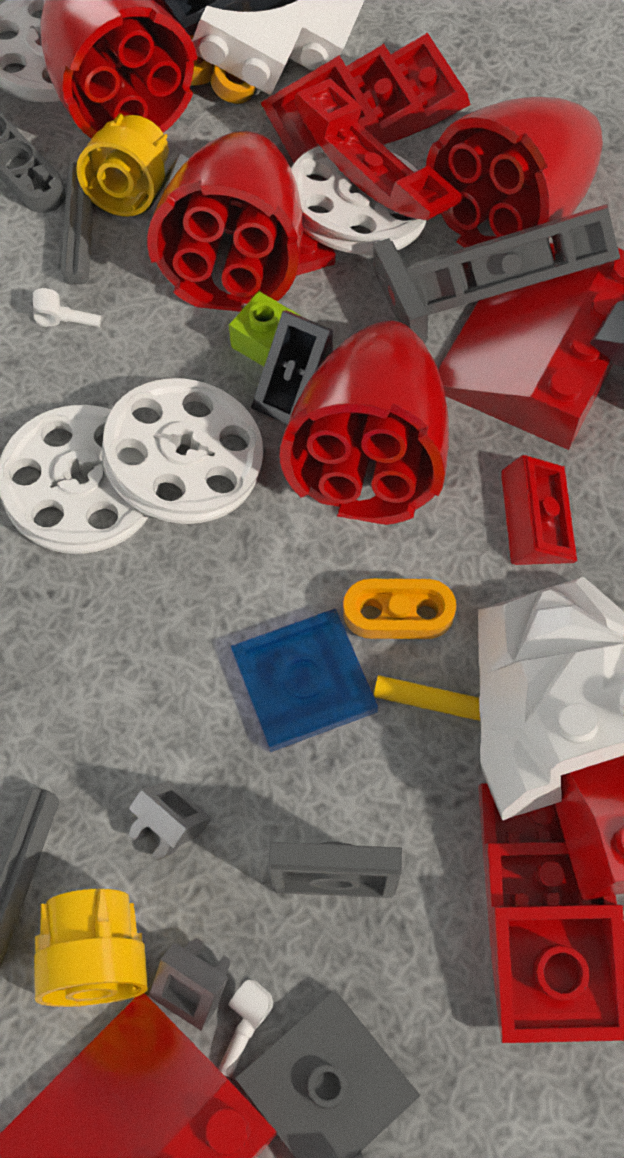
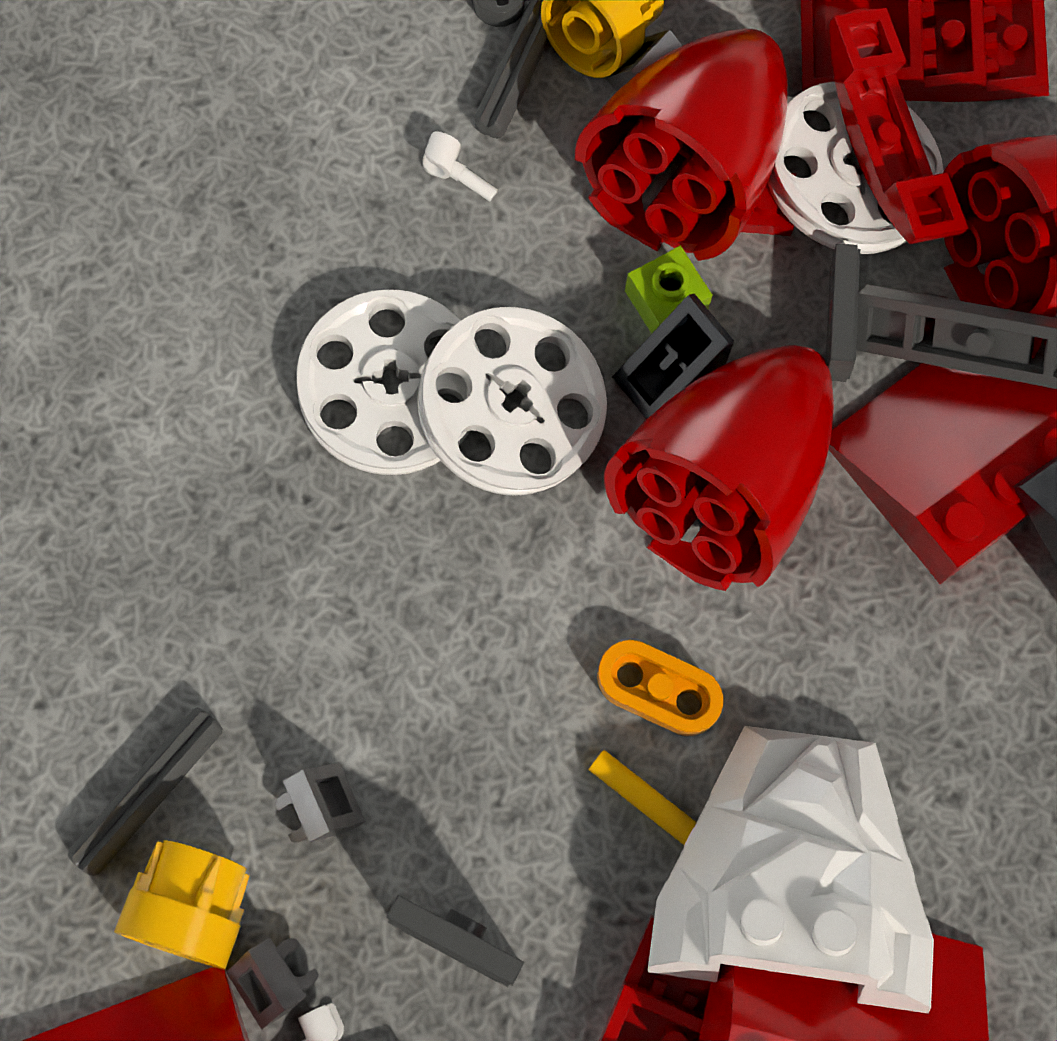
camera: 20 degrees right, 10 degrees up
(303, 679) = (524, 717): clear blue tile -> none
(538, 512) = (867, 644): red slope -> none

